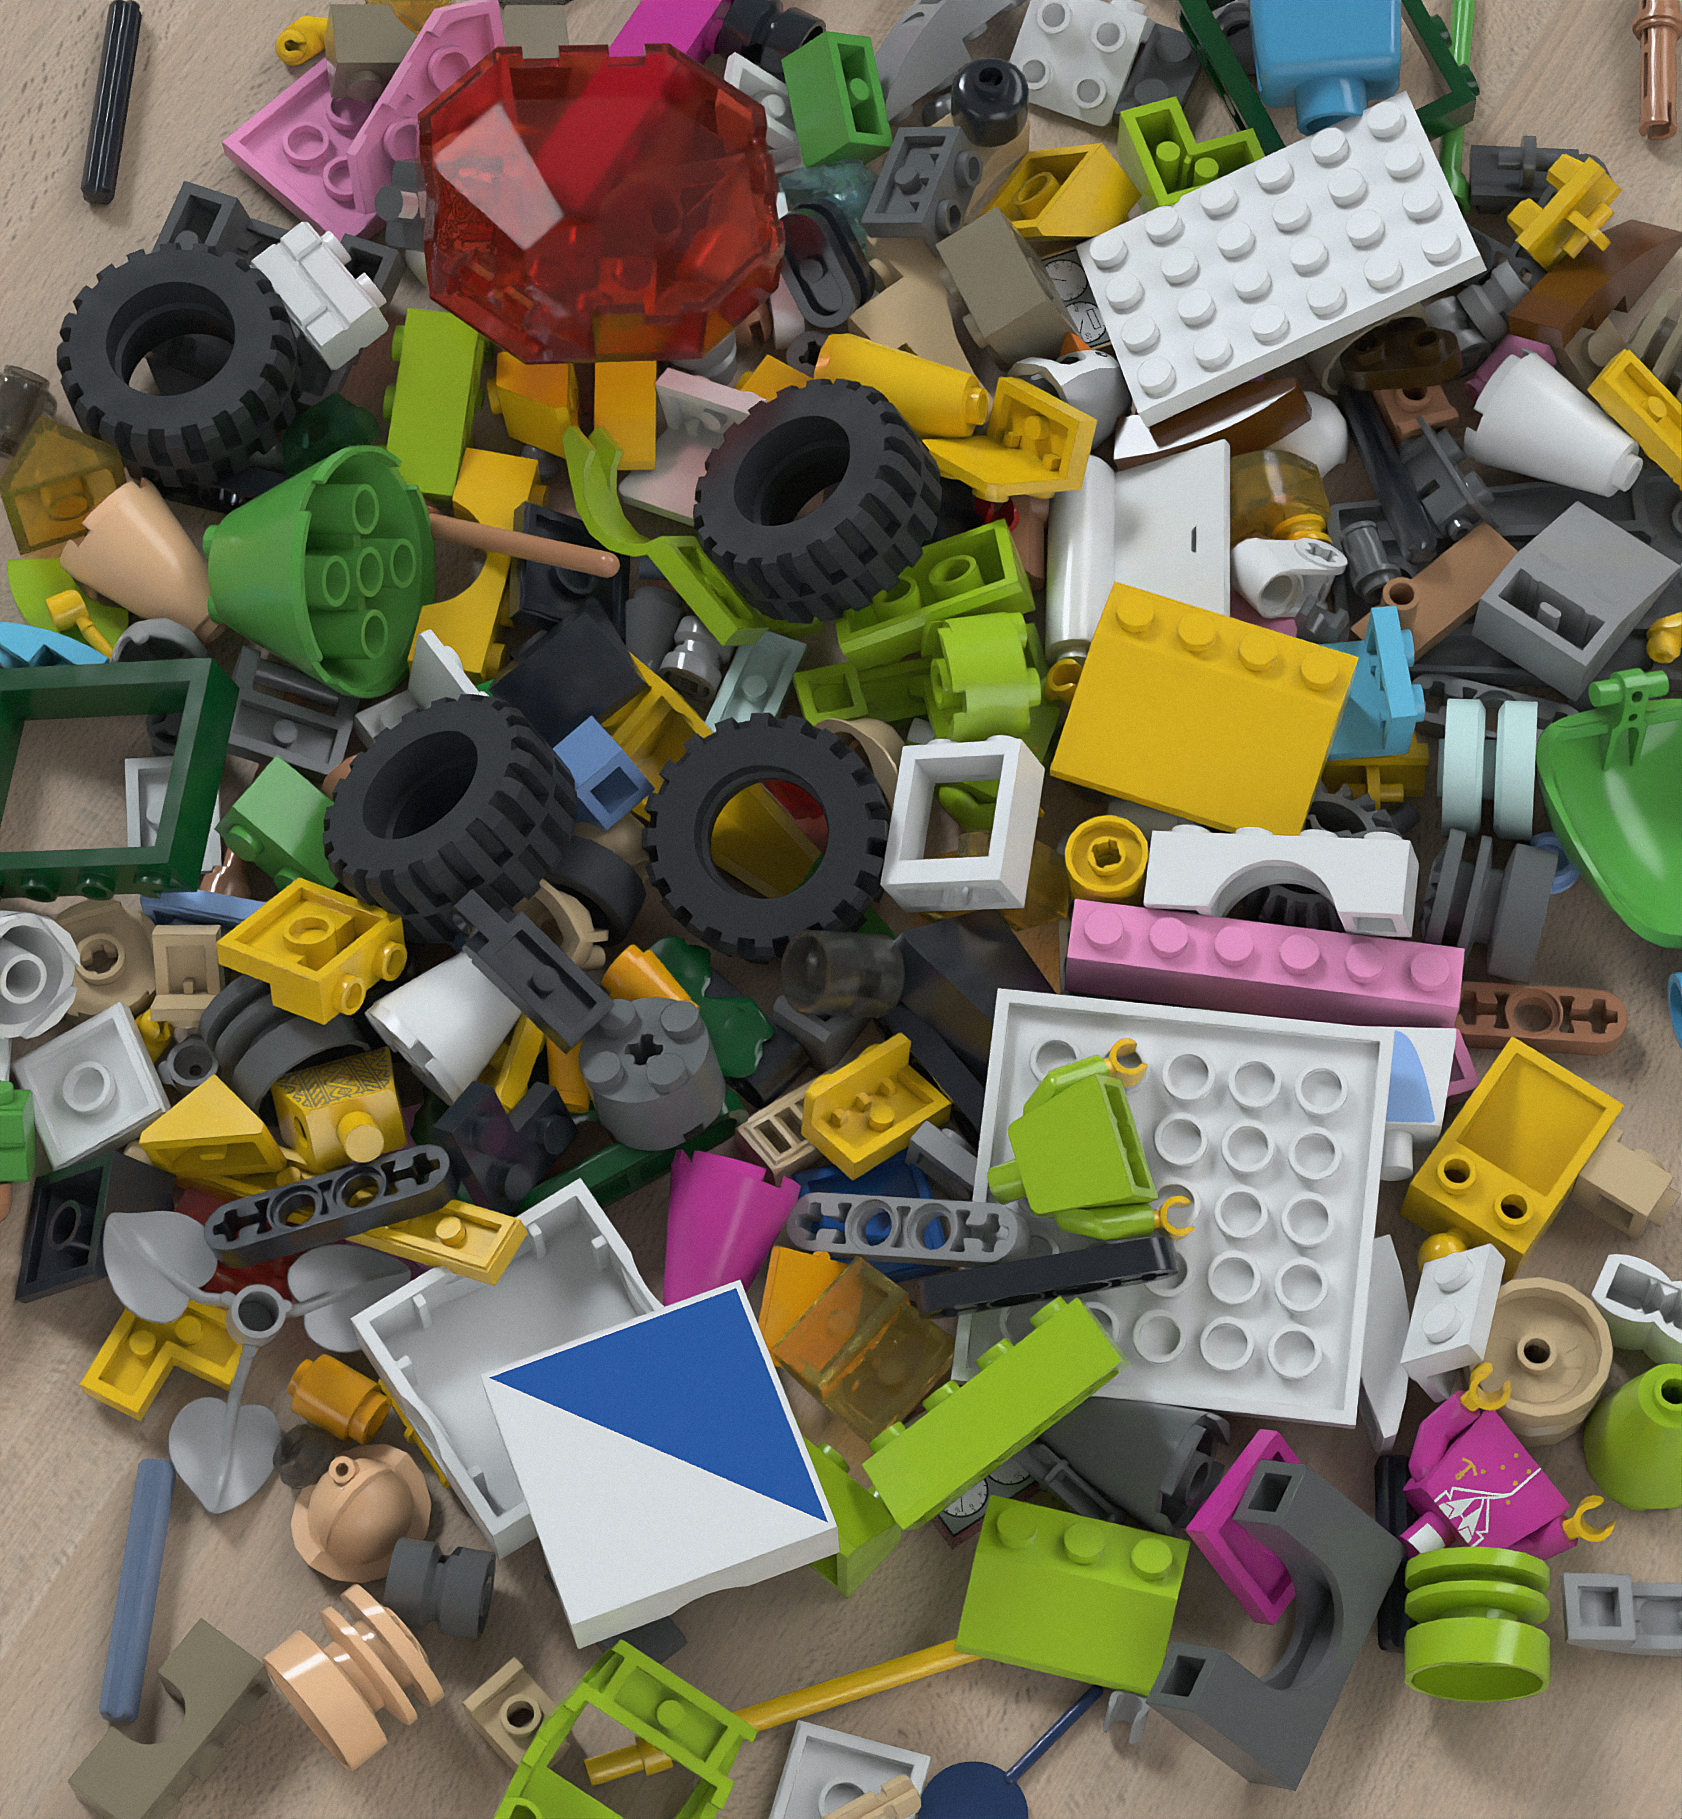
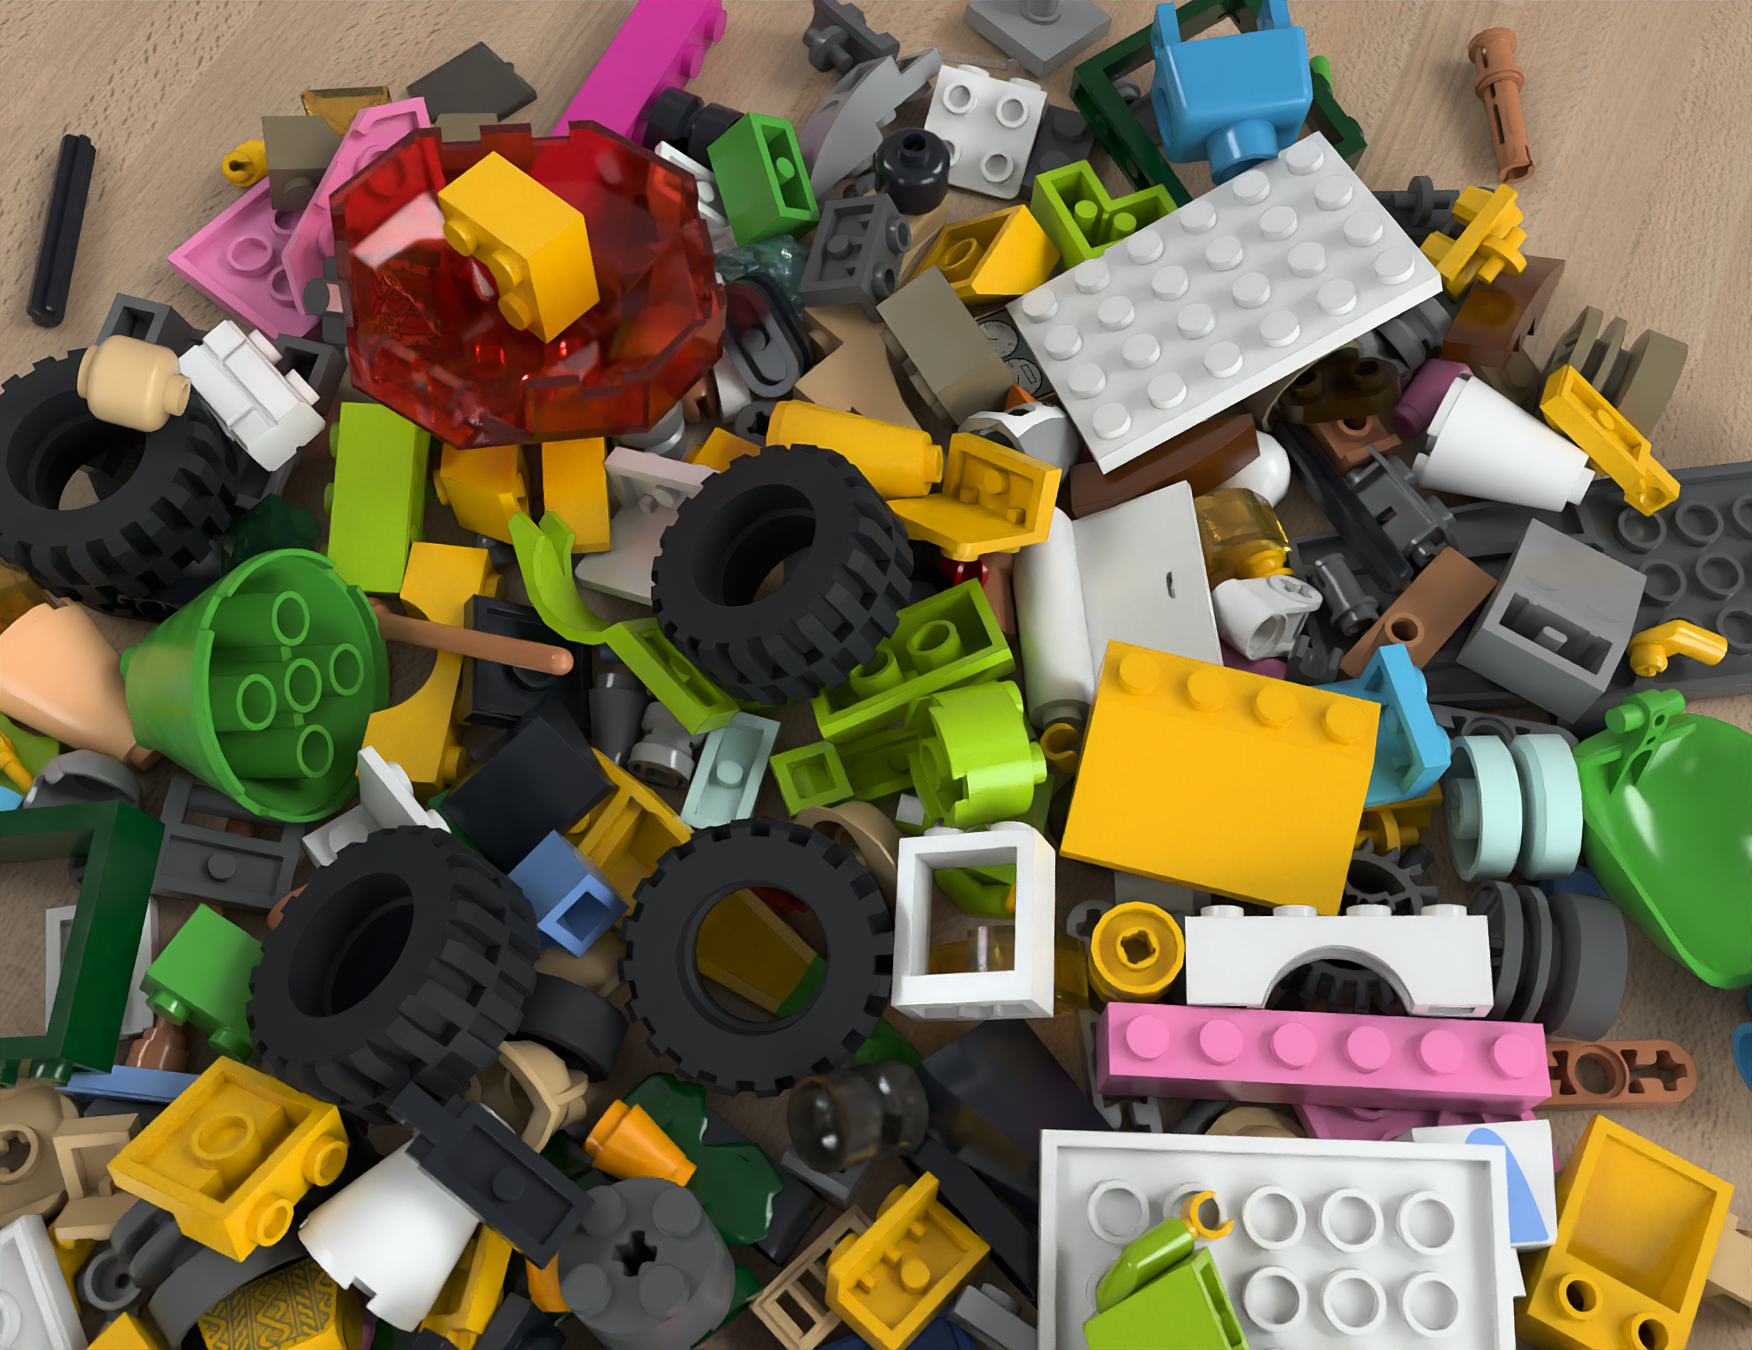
camera: 10 degrees left, 0 degrees up
(231, 282) = (133, 383): none -> tan head
(599, 165) = (528, 242): none -> yellow brick

